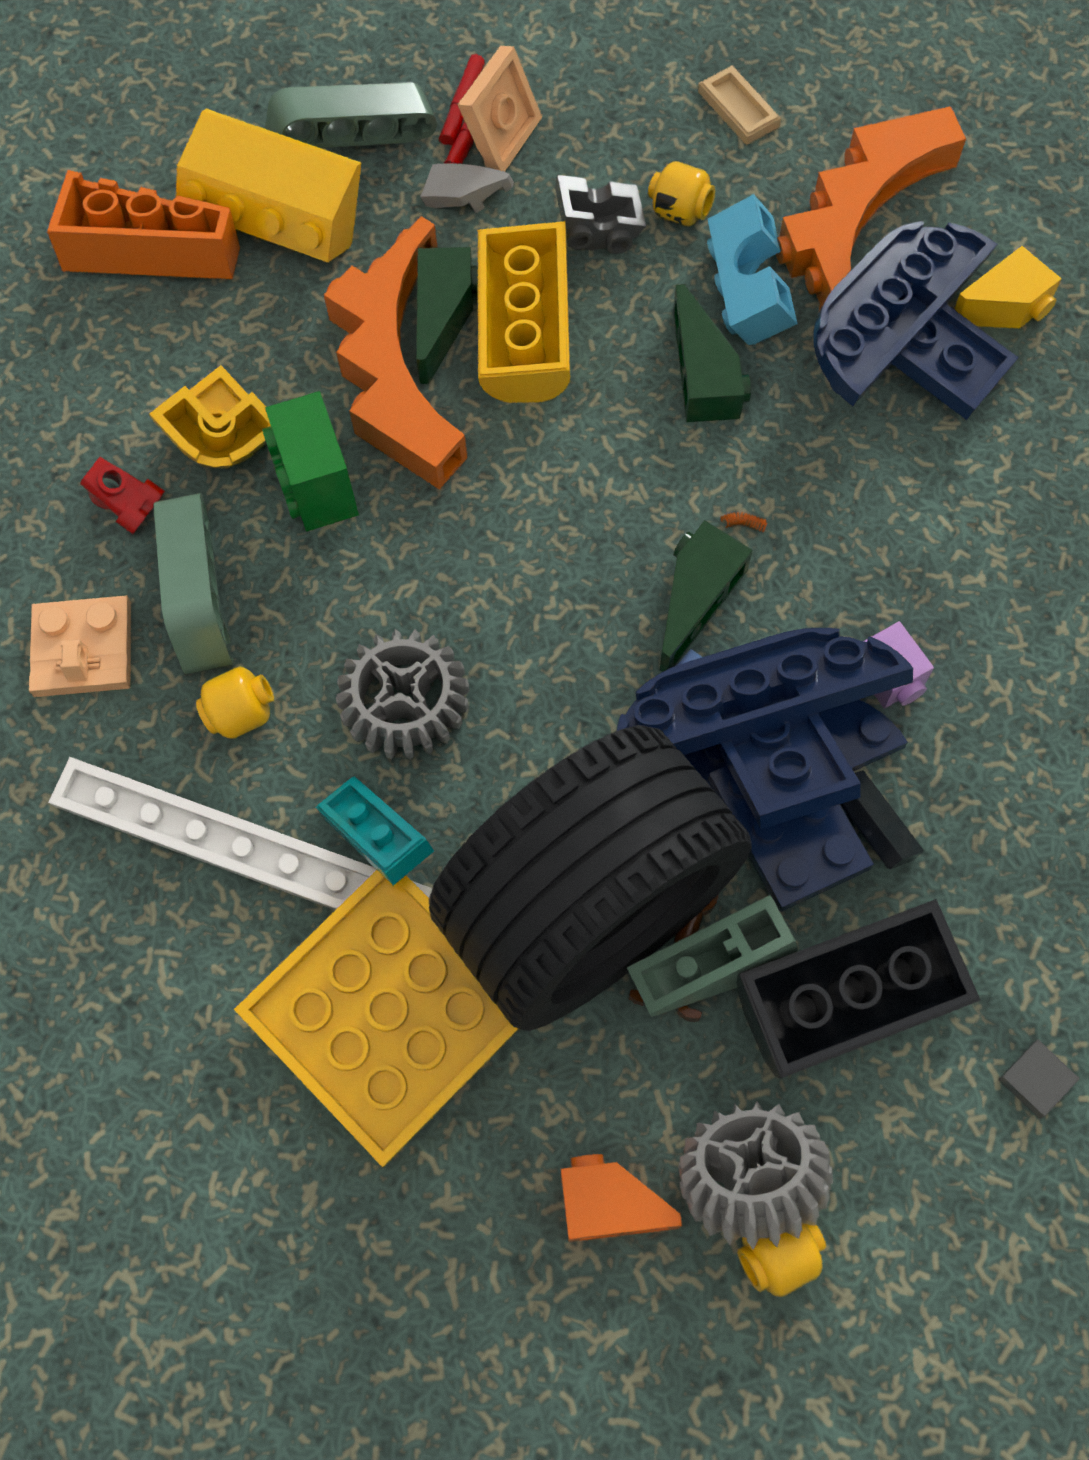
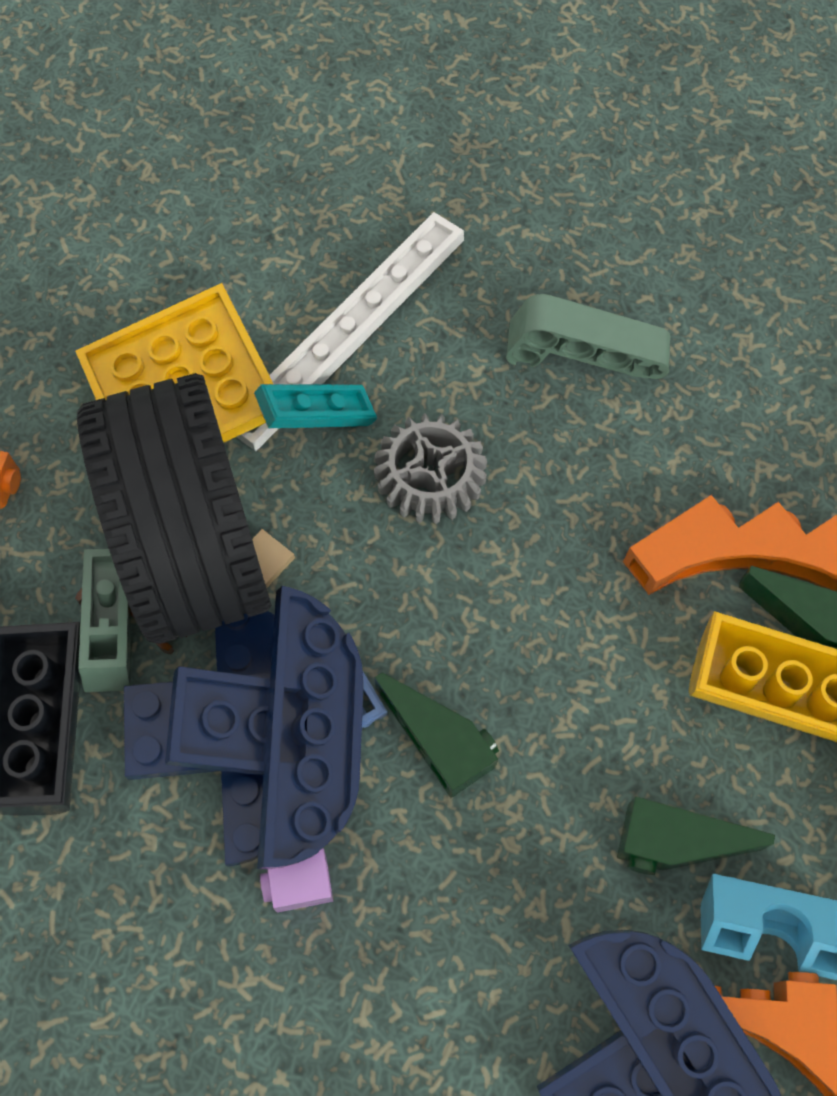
camera: 105 degrees right, 0 degrees up
(80, 646) = (561, 263): light nougat hinge -> none
(129, 501) = (683, 321): red plate -> none
(214, 421) = (733, 393): yellow brick -> none
(235, 702) = (468, 346): yellow head -> none
(309, 462) = (666, 449): green brick -> none
(735, 521) = (504, 803): orange leg -> none
(881, 825) = (167, 803): black tile -> none

